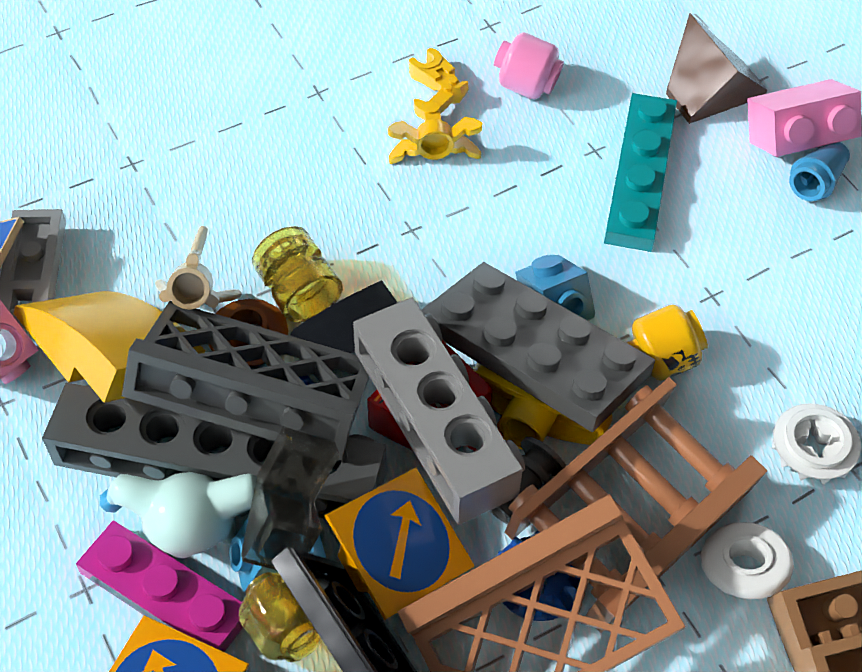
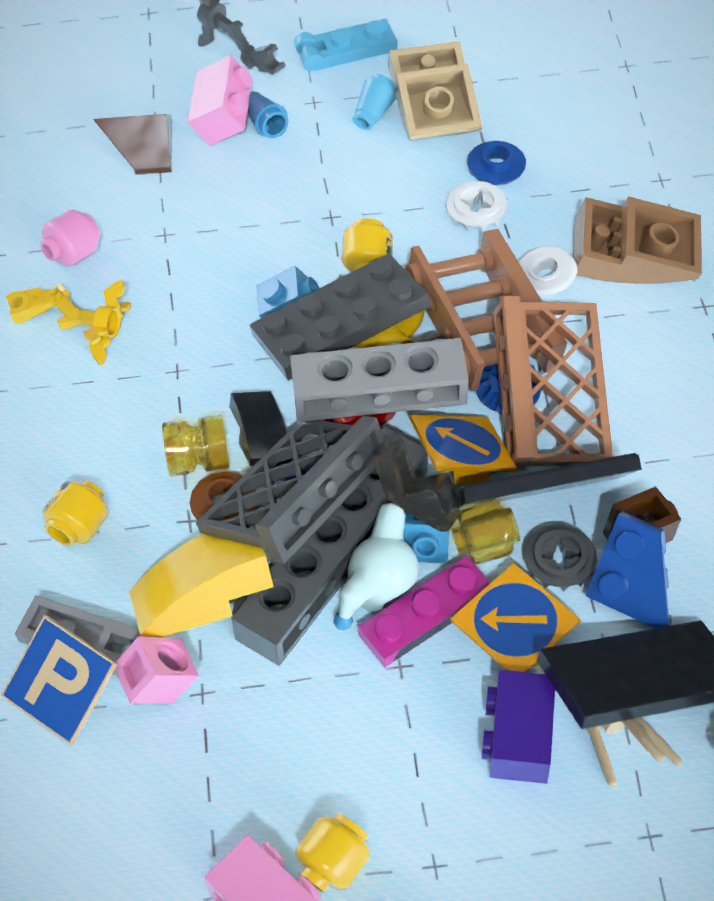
camera: 65 degrees left, 0 degrees up
(177, 205) = (75, 513): none -> yellow head
(193, 282) = (188, 501): tan plant -> none
(641, 173) = (204, 213): teal plate -> none

